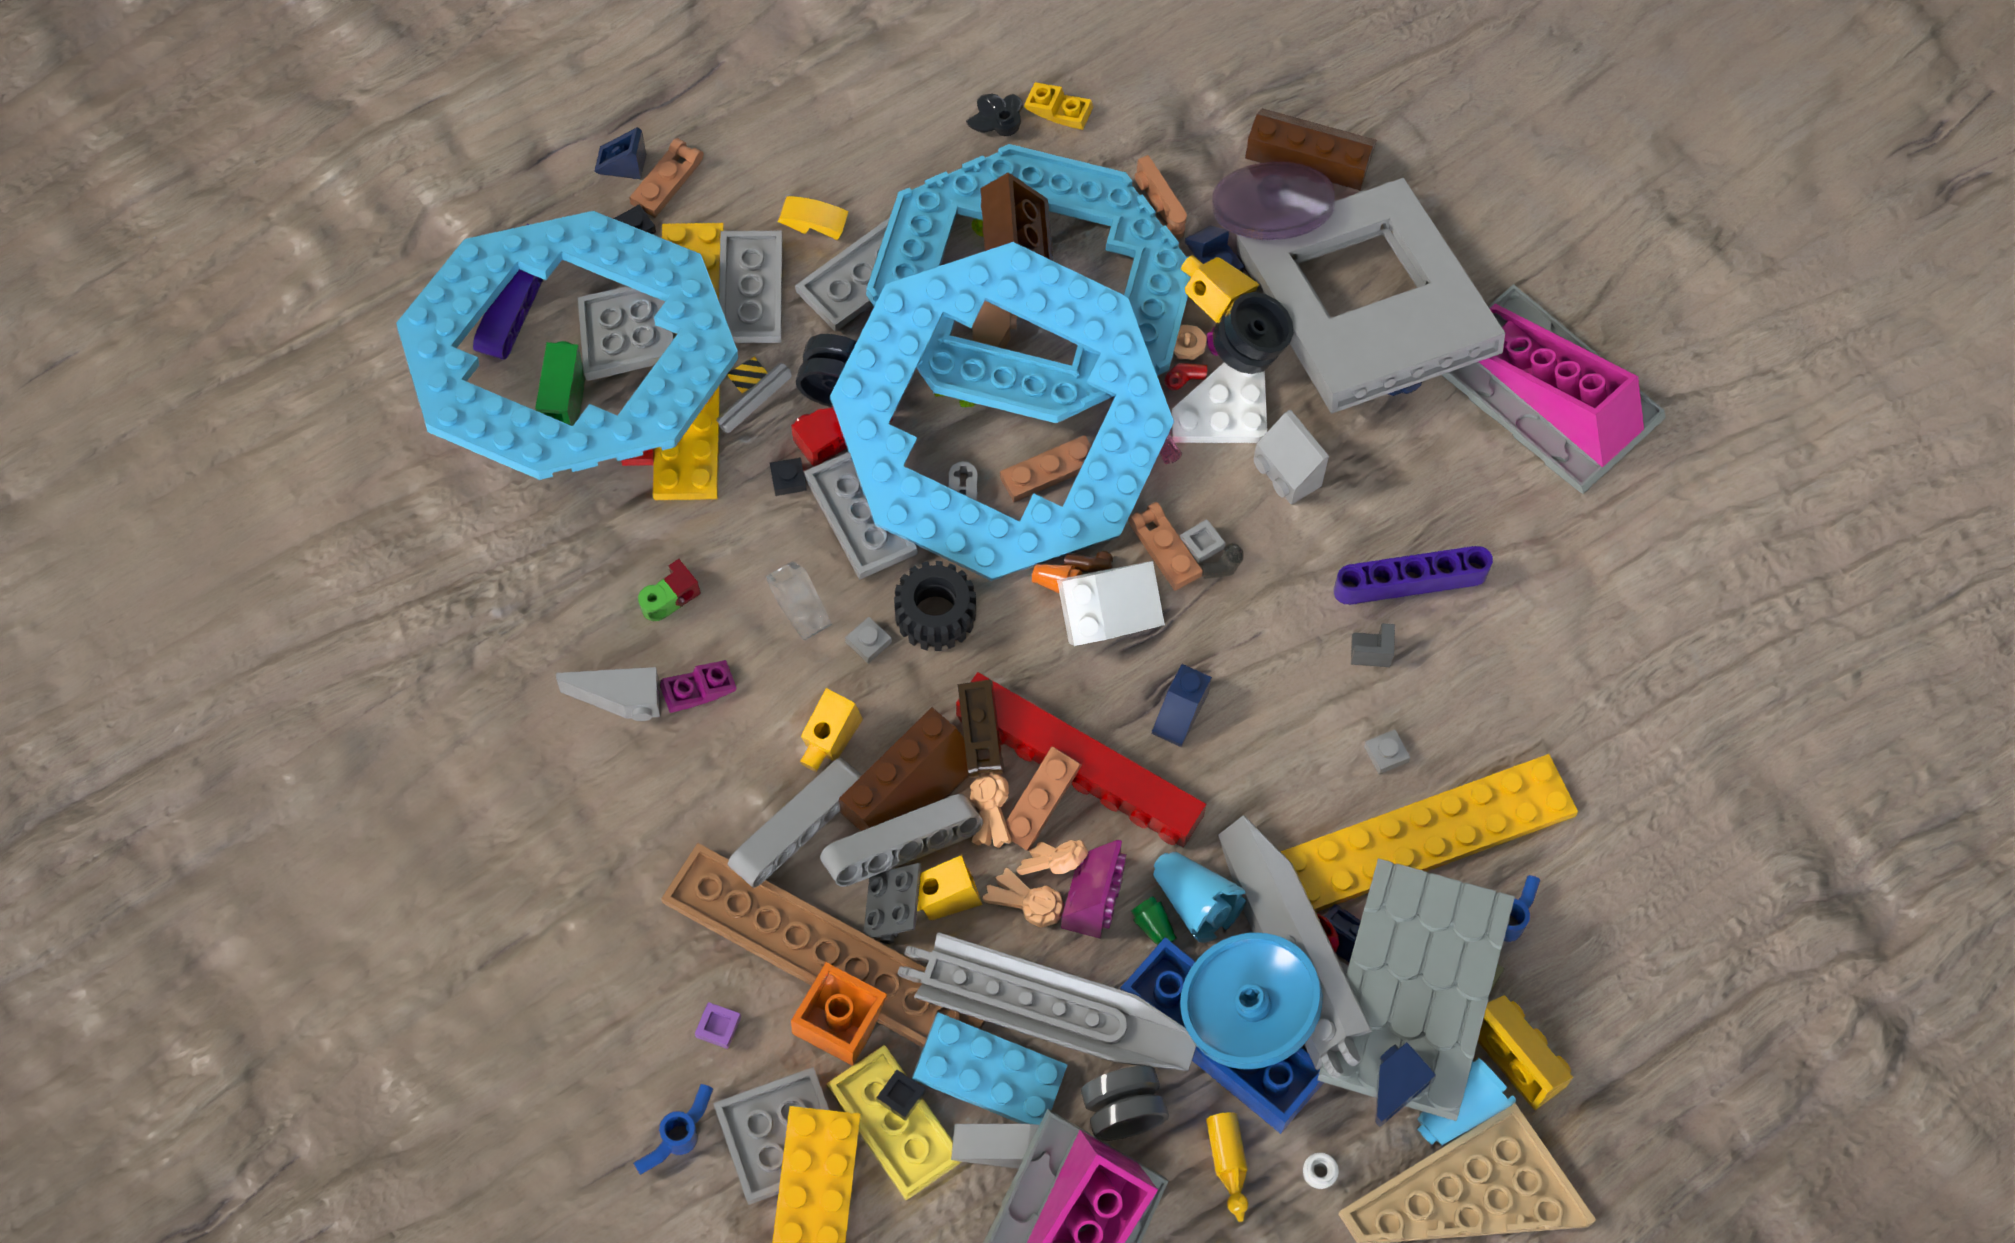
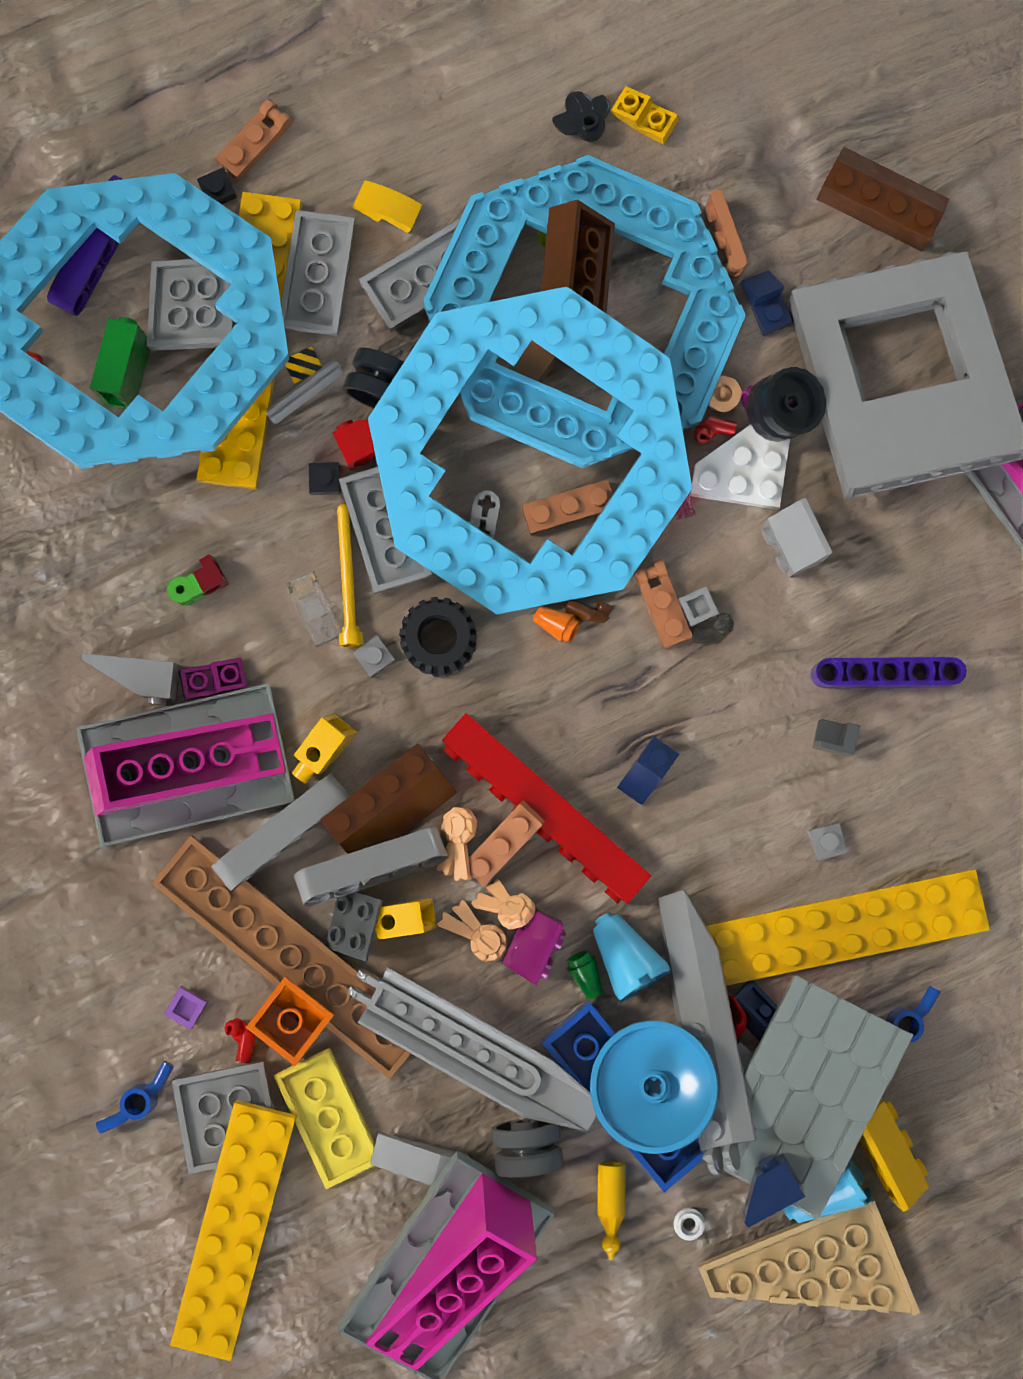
camera: 15 degrees right, 20 degrees up
(623, 156) = (214, 111): dark blue slope -> none
(679, 777) = (185, 765): none -> piece
(786, 1048) = (243, 1037): none -> red arm
(840, 620) = (350, 633): none -> yellow piece
(901, 1095) = (334, 1103): black plate -> none
(980, 727) = (458, 771): dark brown plate -> none
(988, 1071) = (414, 1092): medium azure plate -> none
(1110, 603) = (600, 661): white slope -> none
(1215, 285) = (761, 344): yellow torso -> none
(1273, 200) = (834, 258): clear purple dish -> none

